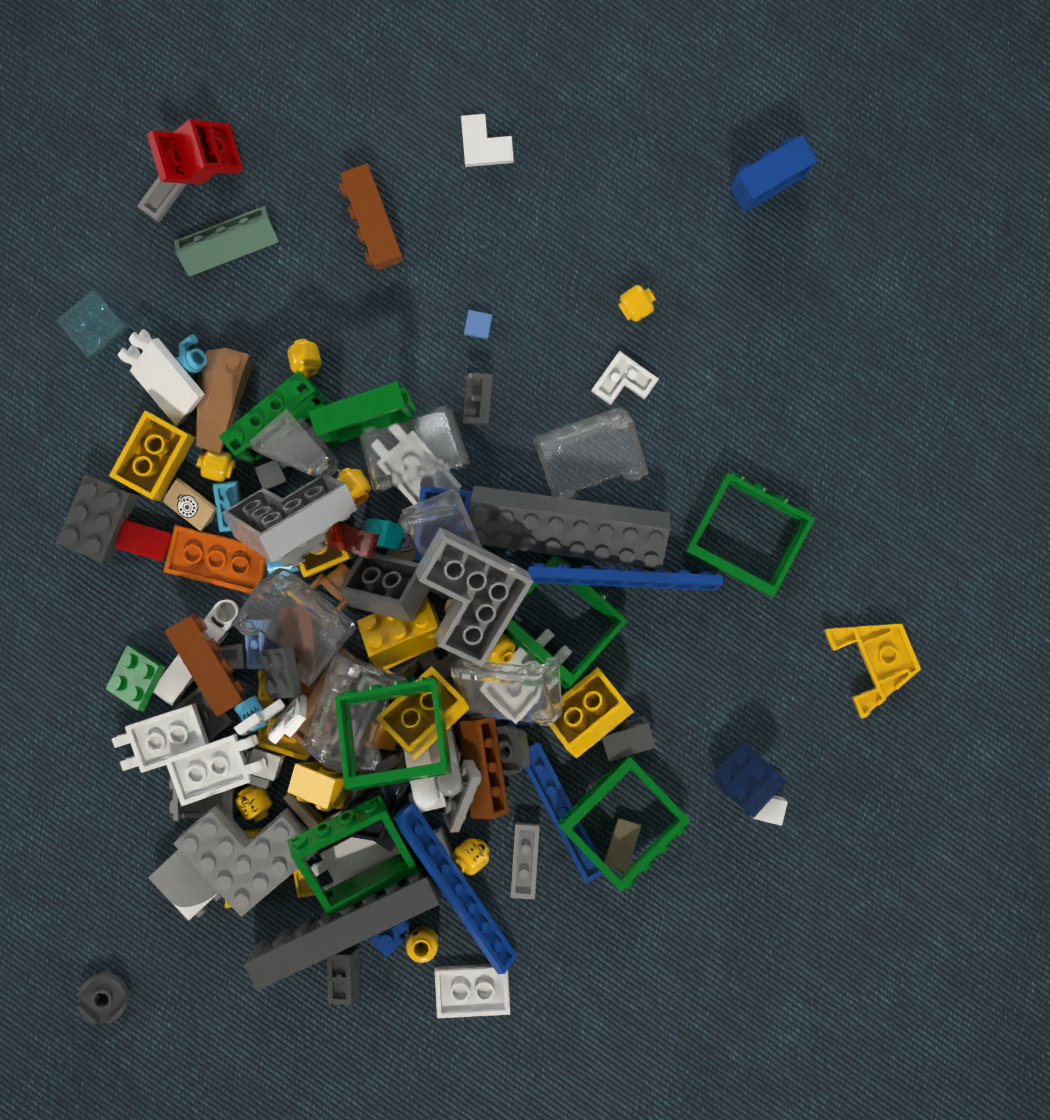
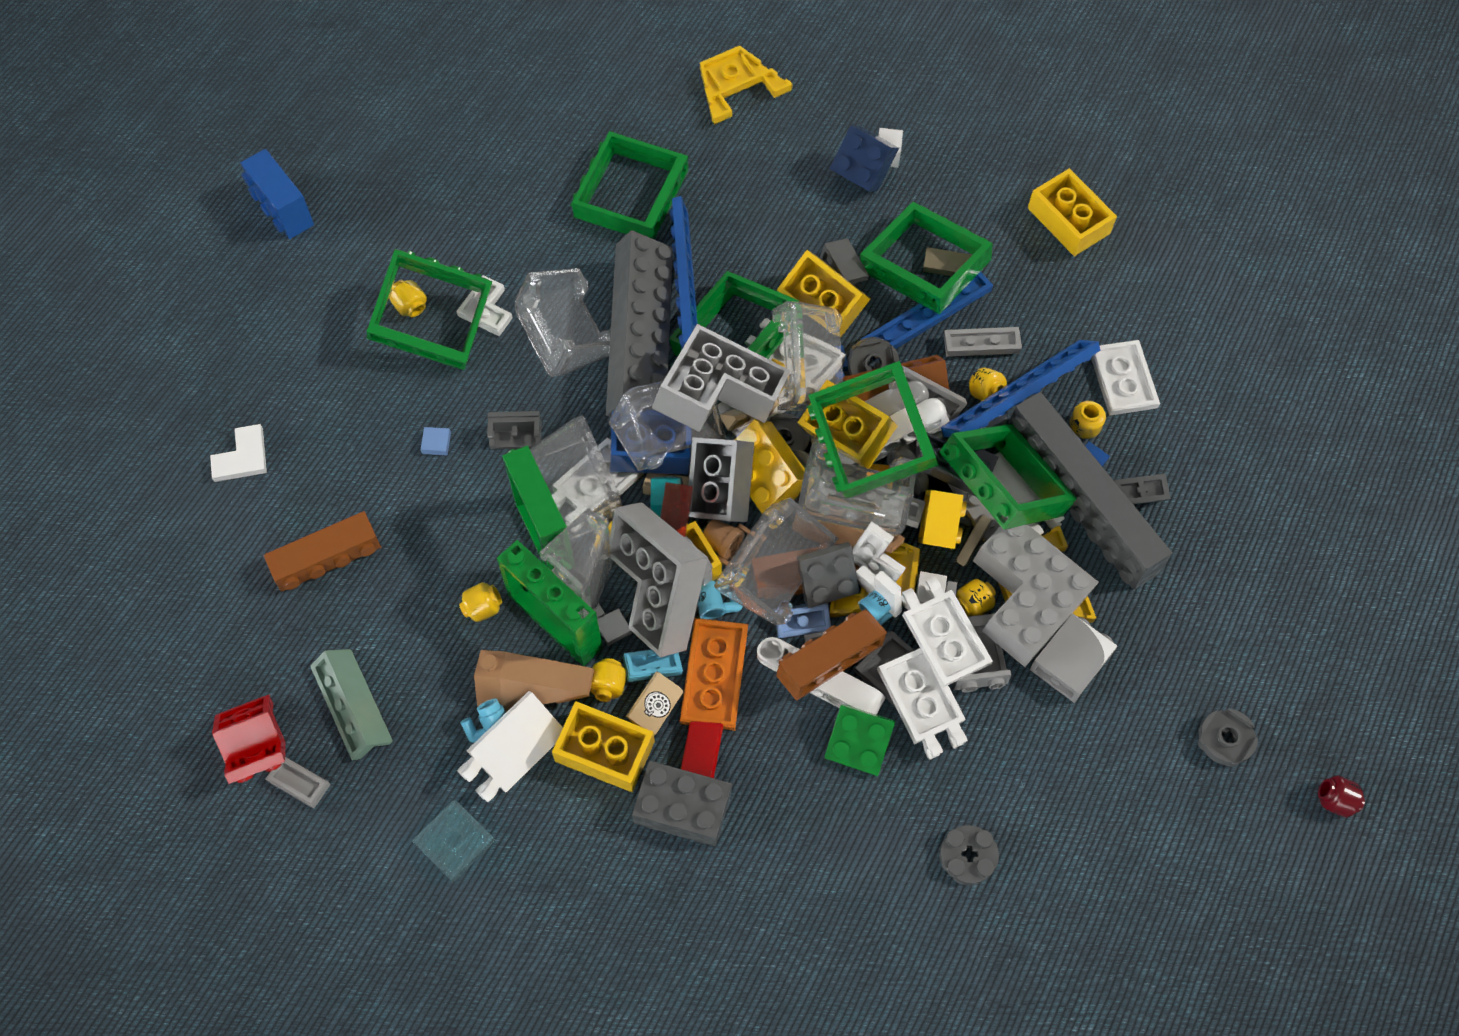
camera: 95 degrees left, 25 degrees down
(19, 763) = (979, 841): none -> dark grey plate
(37, 1082) = (1341, 796): none -> dark red head
(573, 311) = (418, 346): none -> green window
(661, 981) = (1071, 212): none -> yellow brick

